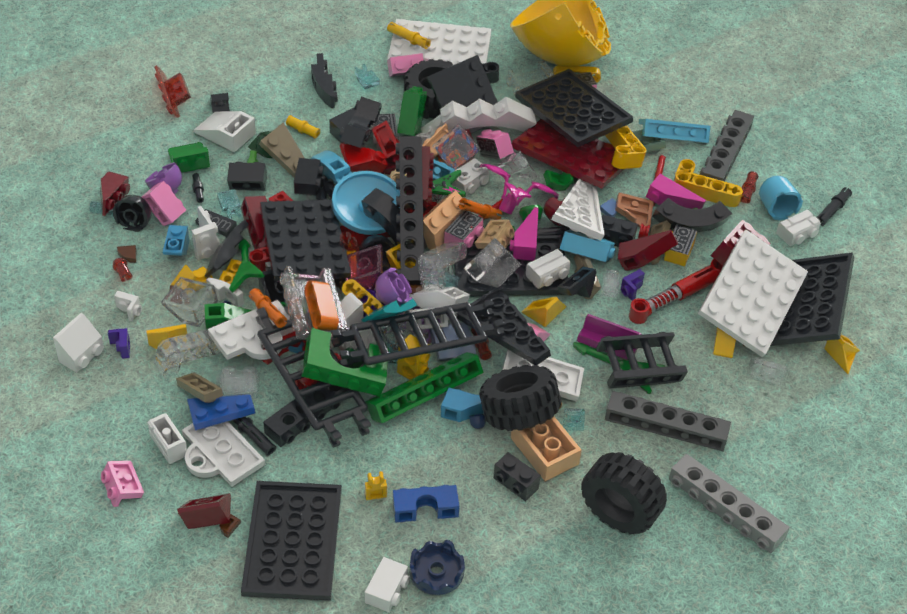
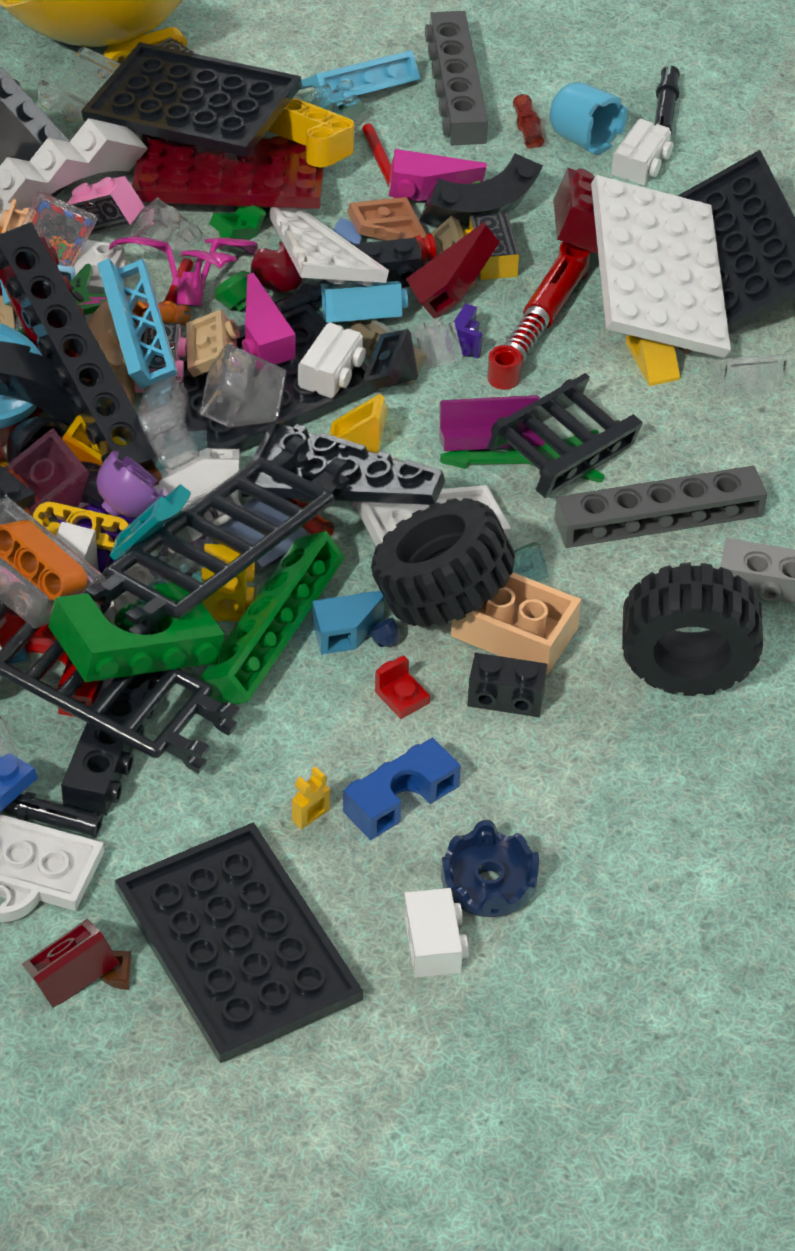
camera: 30 degrees left, 0 degrees up
(449, 211) = (125, 322): none -> medium azure fence
(464, 452) = (399, 688): none -> red bracket
(644, 135) = (328, 99): none -> clear light blue plate
(706, 187) = (482, 143): yellow beam -> none

